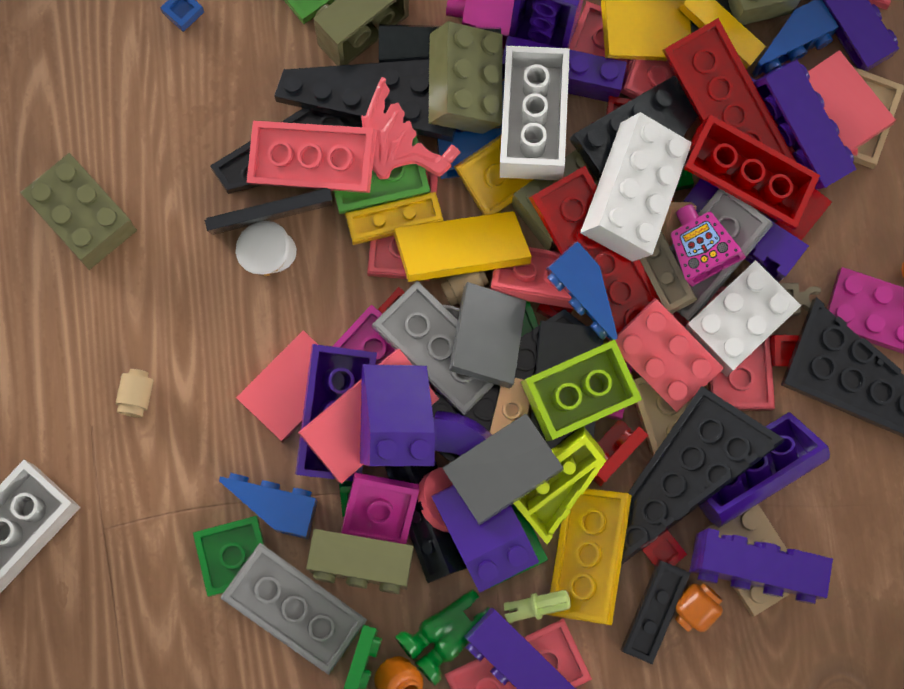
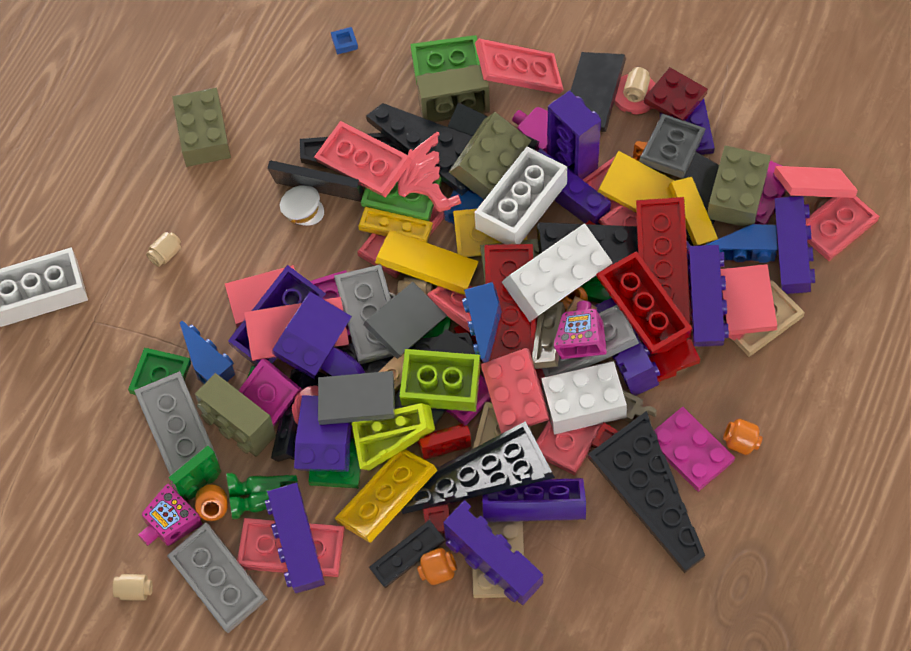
camera: 40 degrees right, 15 degrees down
(537, 606) = (330, 506): yellowish green axle -> none

